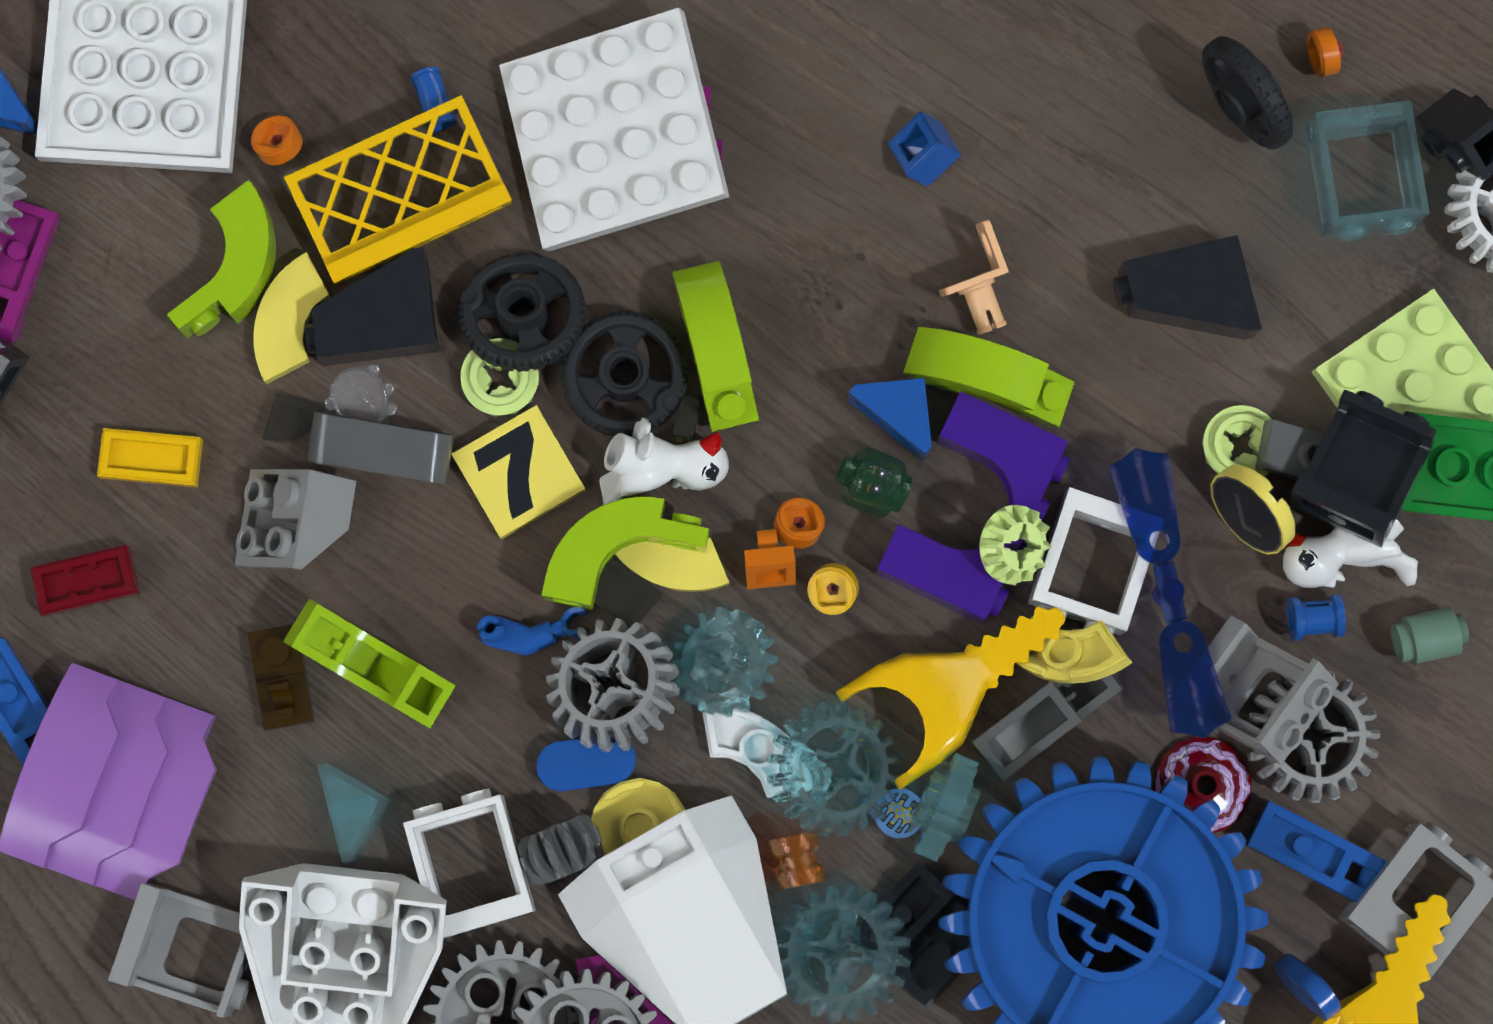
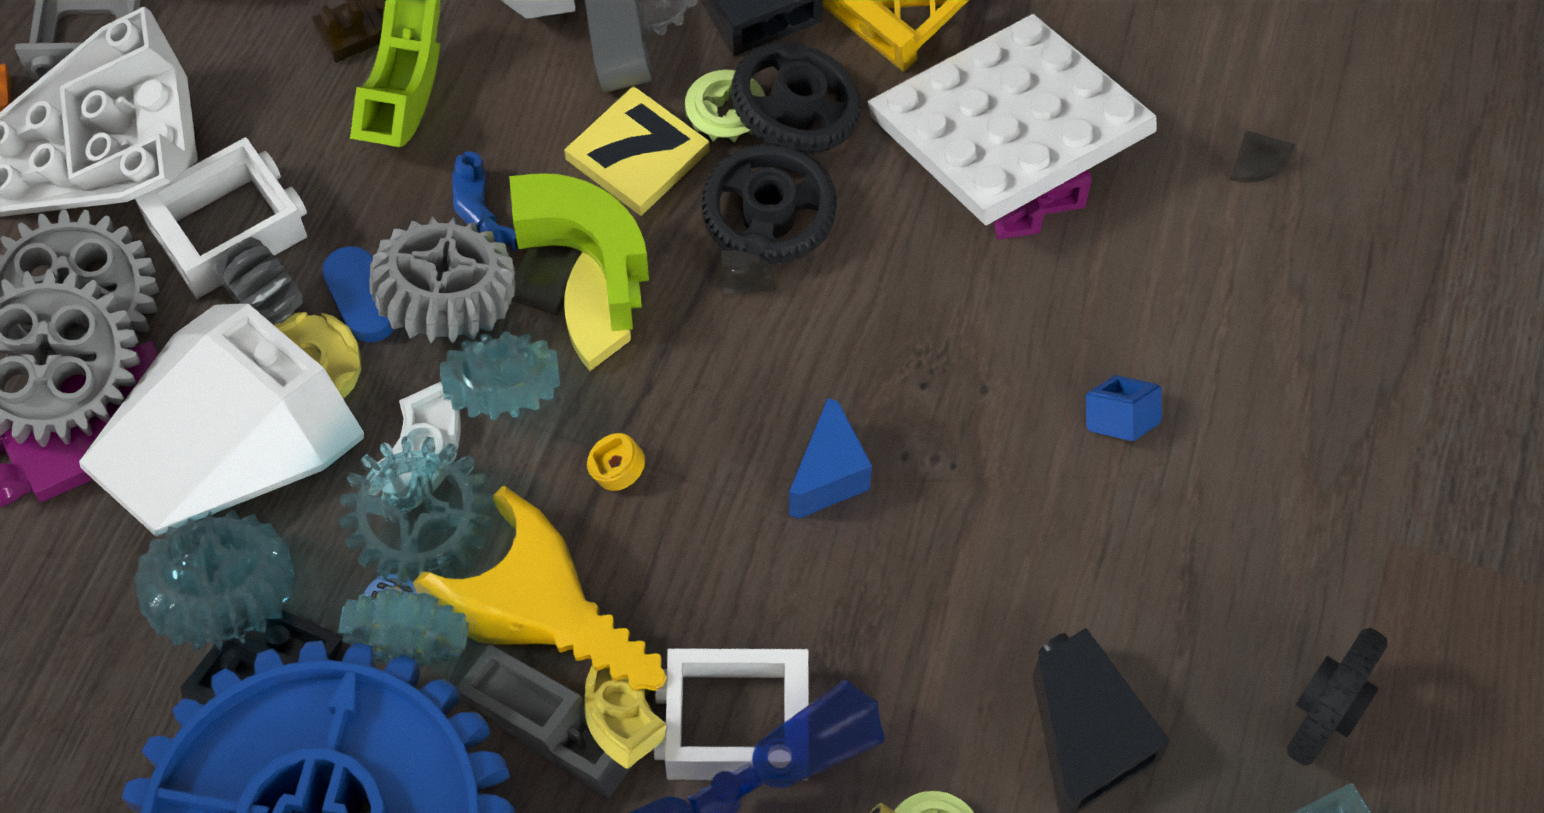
camera: 75 degrees right, 20 degrees down
(353, 809) = (250, 104): clear light blue slope -> none
(649, 462) = (686, 245): white animal -> none
(716, 345) = (826, 262): lime arch -> none
(769, 563) = (621, 390): orange tile -> none
(797, 860) = (308, 512): clear orange wheel -> none
(799, 522) = (675, 408): orange tile -> none
(873, 482) = (743, 461): clear green head -> none
(978, 289) = (999, 501): light nougat bracket -> none
(990, 372) = (904, 543): lime arch -> none
(1009, 525) = (731, 579): yellowish green gear -> none
(1024, 462) = (814, 612): dark purple arch -> none
(1324, 52) = (1431, 785): orange tile -> none

